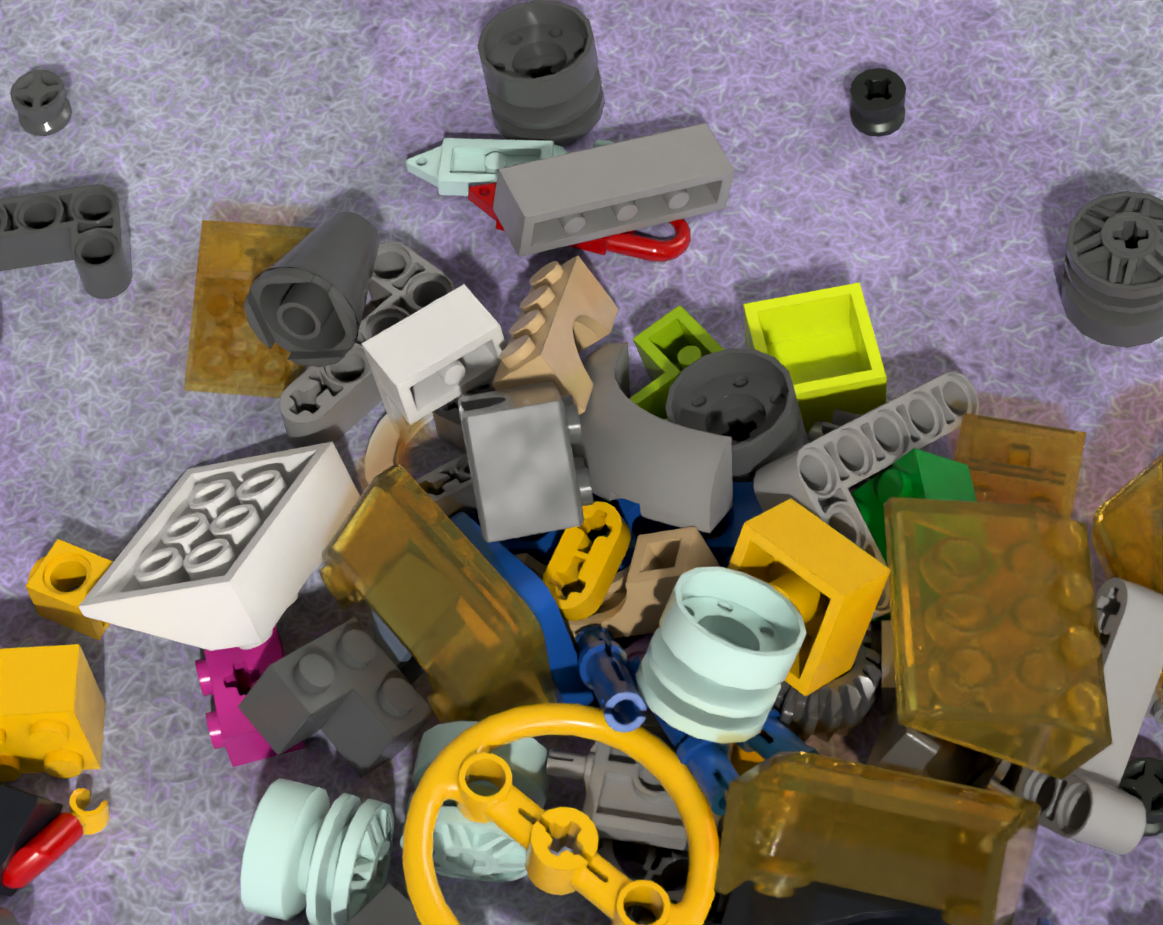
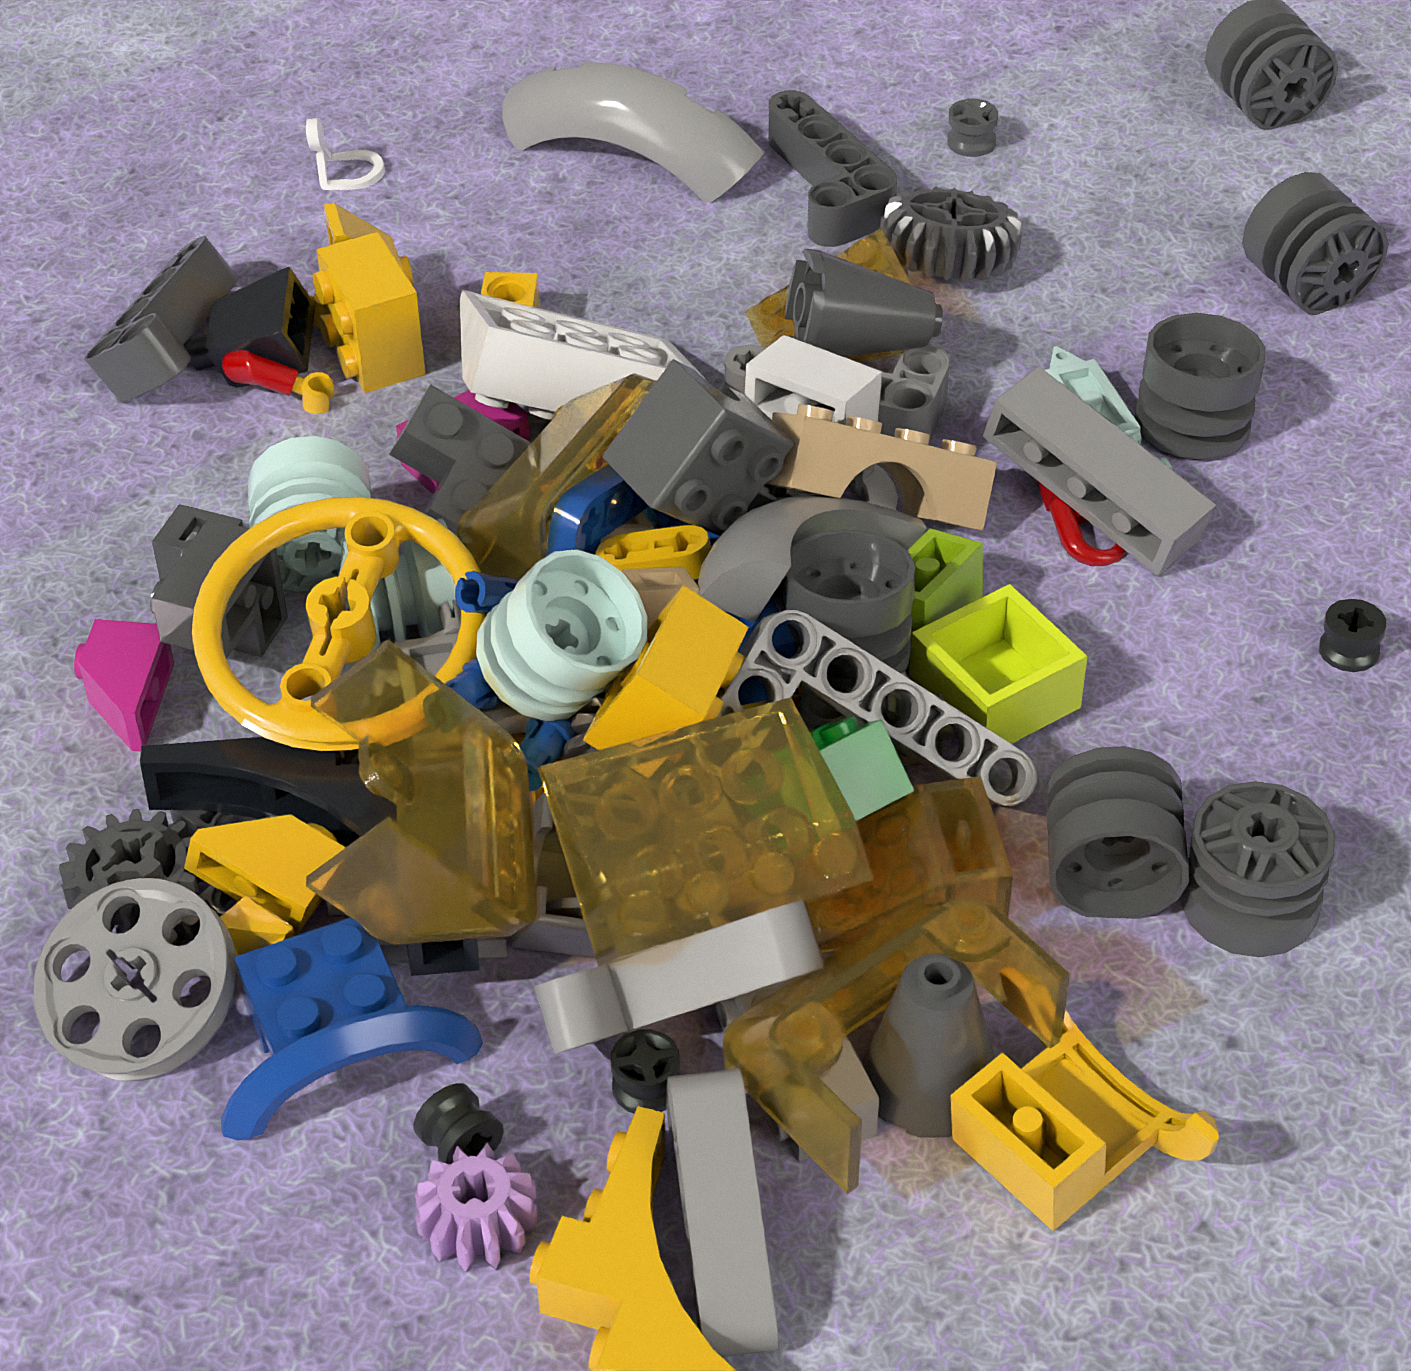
camera: 60 degrees right, 10 degrees down
(206, 173) = (952, 233): none -> flat silver gear
(1042, 342) = (1116, 833): none -> dark grey wheel

